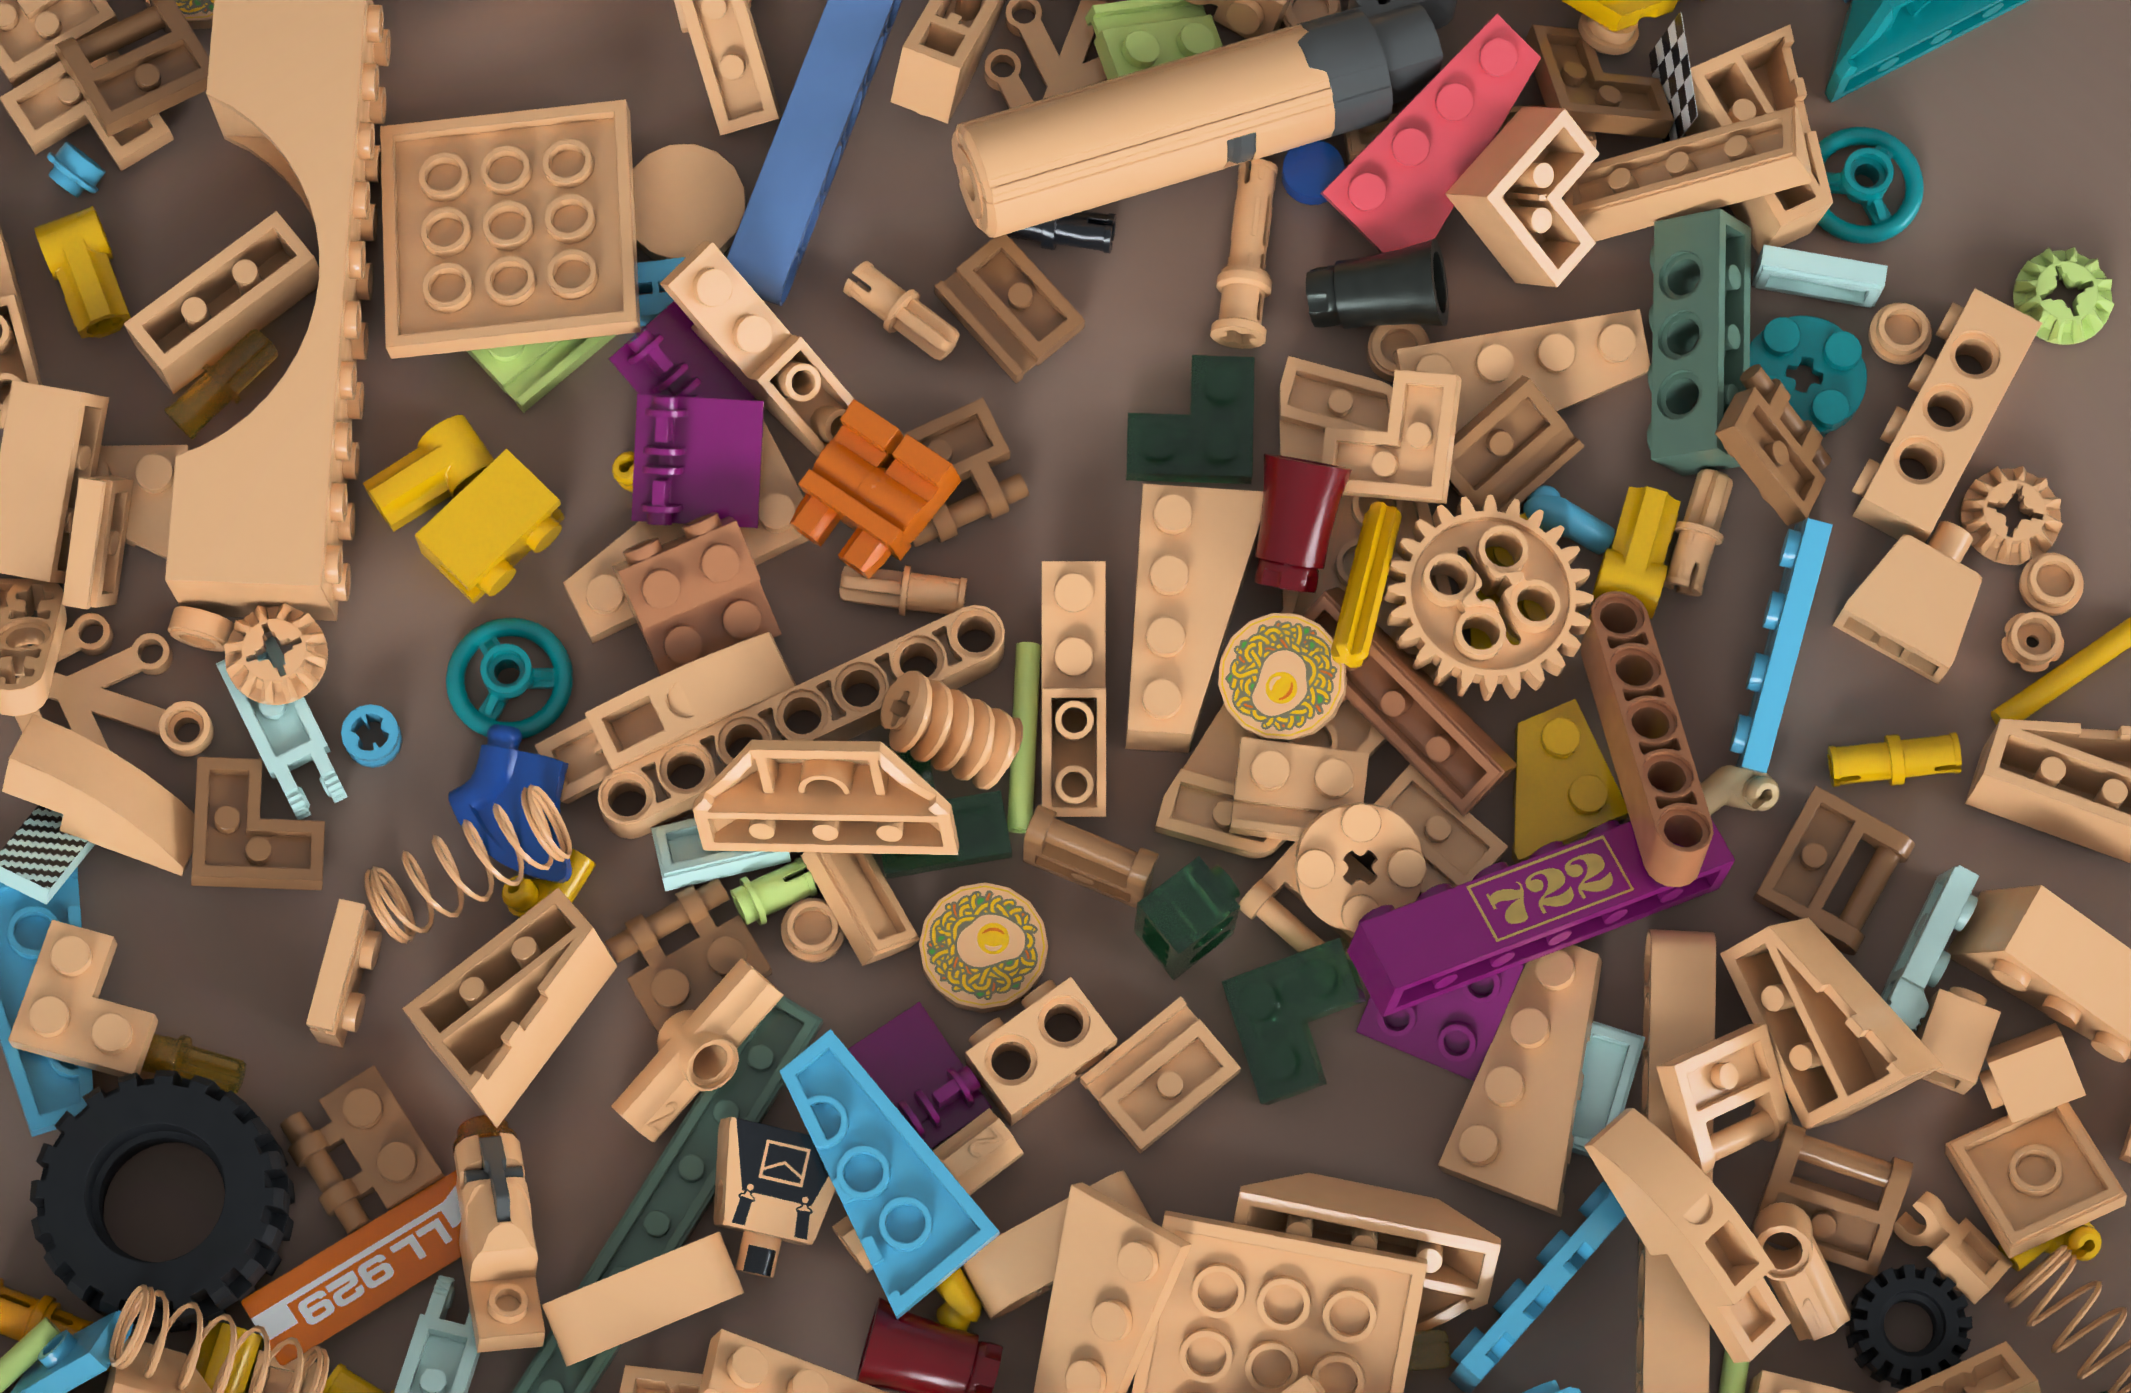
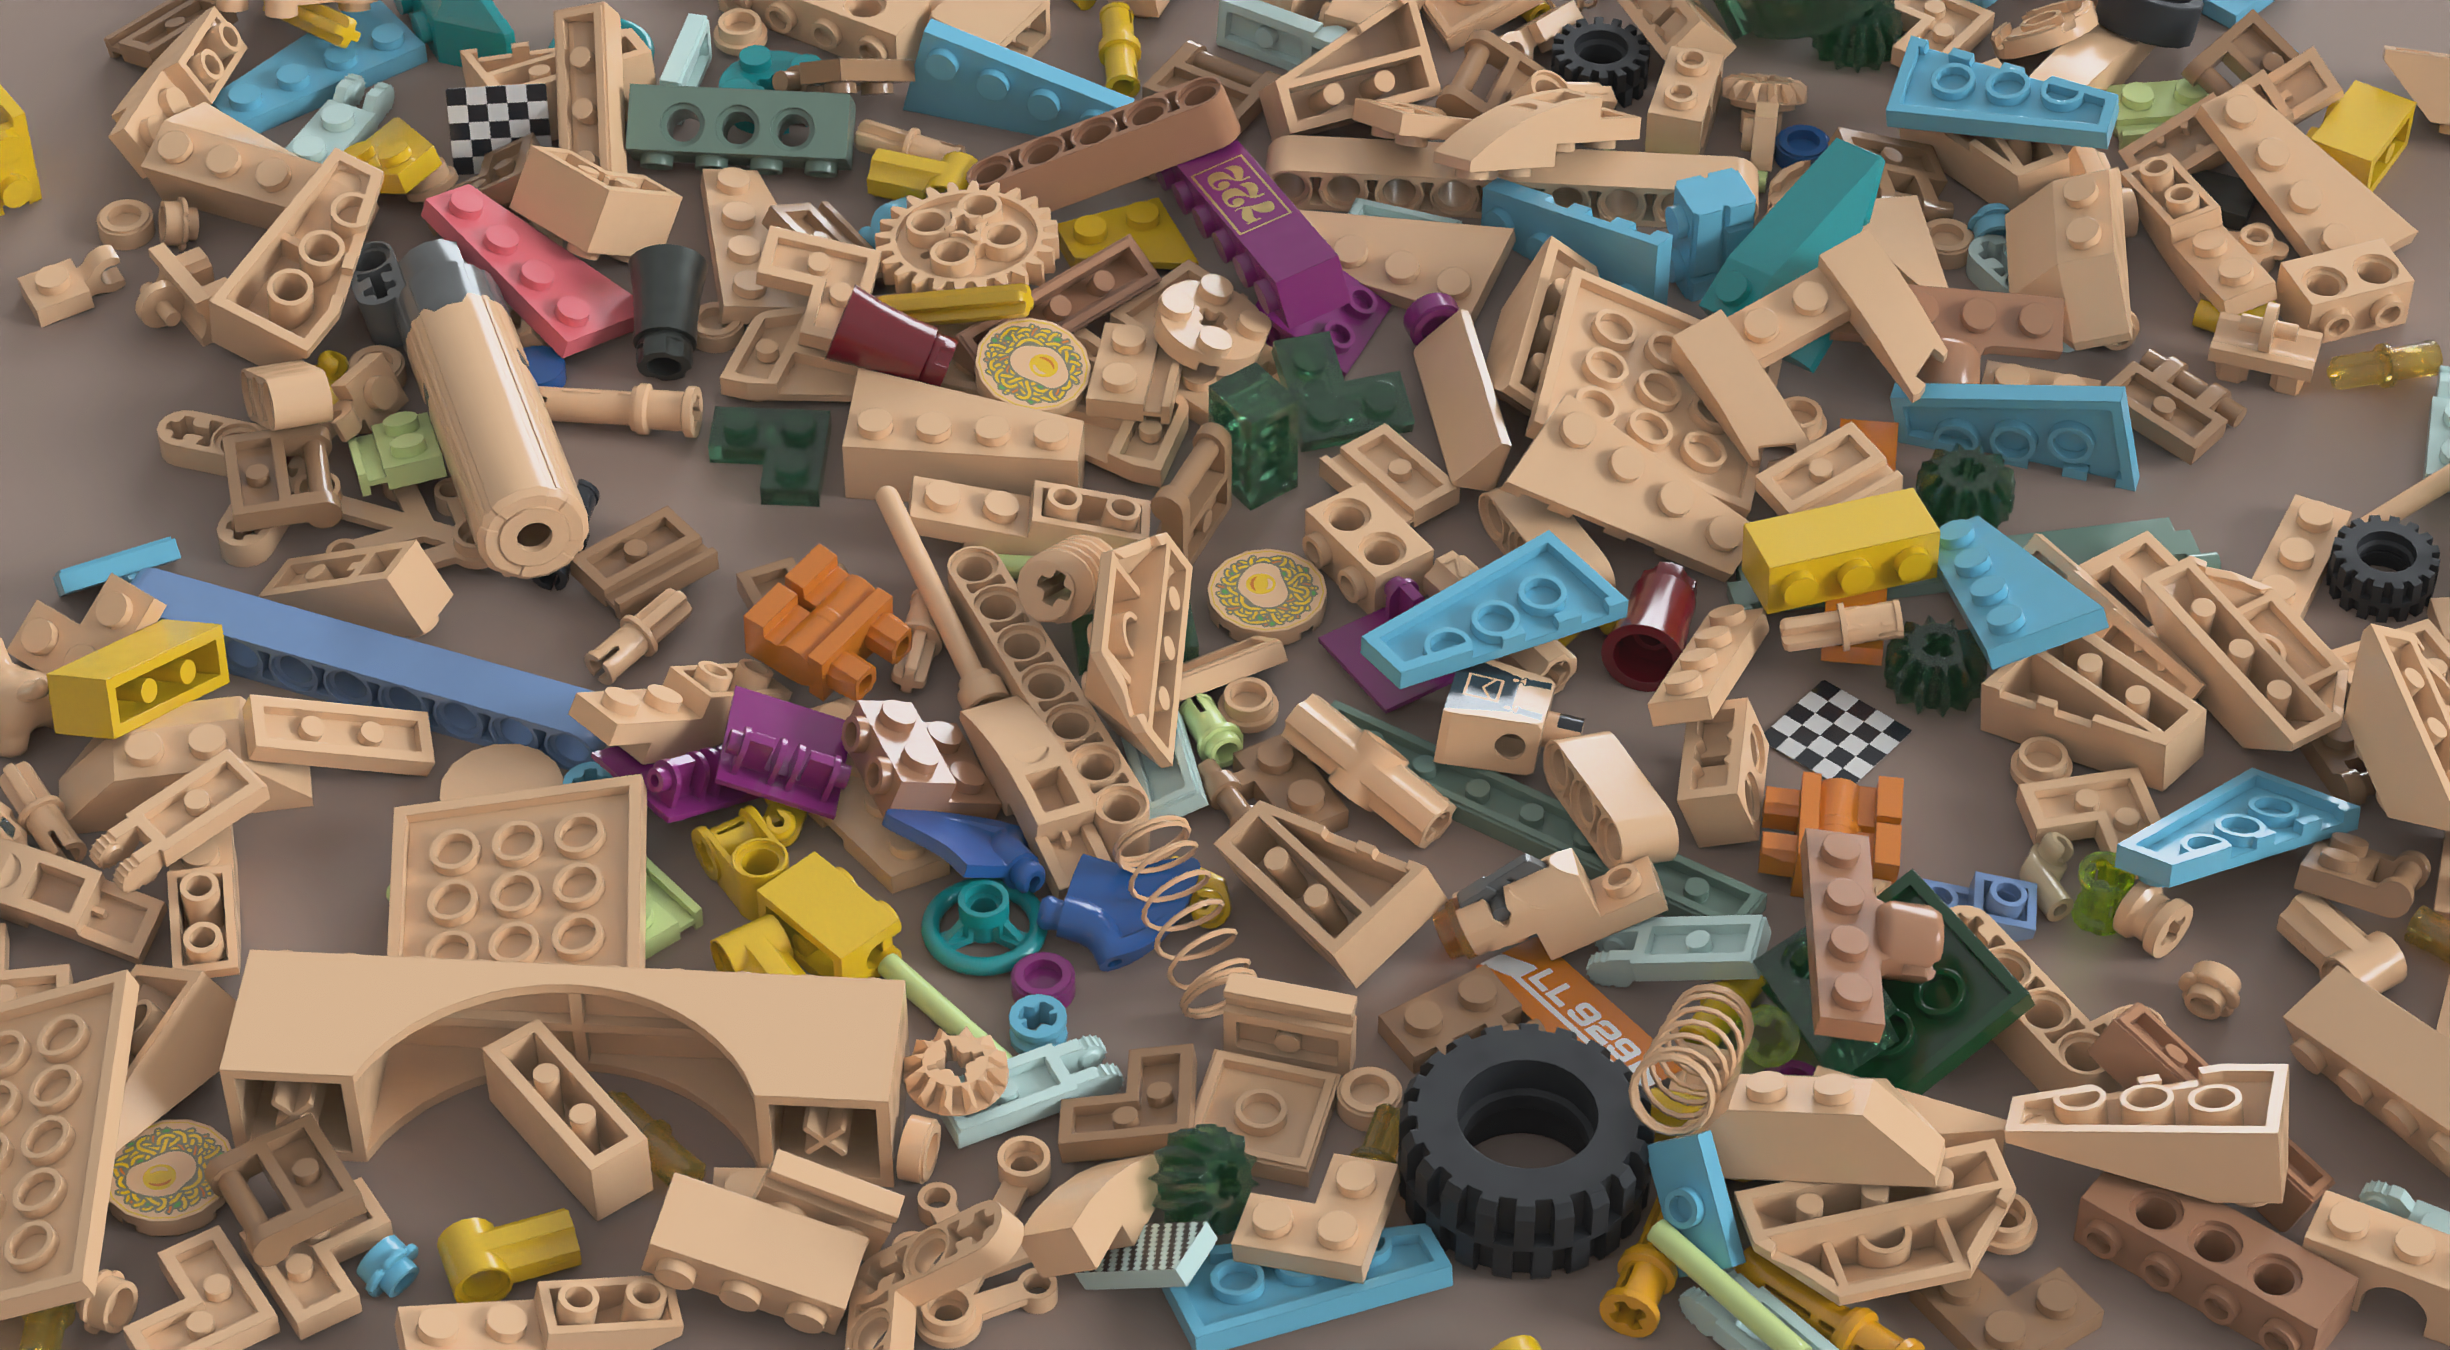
camera: 85 degrees left, 30 degrees down
(132, 893) = (1204, 1177): none -> clear green gear
(256, 955) = (1275, 1107): none -> light nougat tile
(278, 1058) = (1362, 1092): none -> light nougat tile
(387, 651) = (930, 1000): none -> yellowish green bar
(433, 739) = (1045, 975): none -> magenta tile
(587, 652) = (972, 845): none -> blue arm
(588, 431) = (741, 857): none -> yellow piece
(826, 652) = (977, 684): none -> light nougat piece
(1271, 1150) = (1463, 403): none -> light nougat slope
(1421, 1123) = (1428, 314): none -> magenta tile

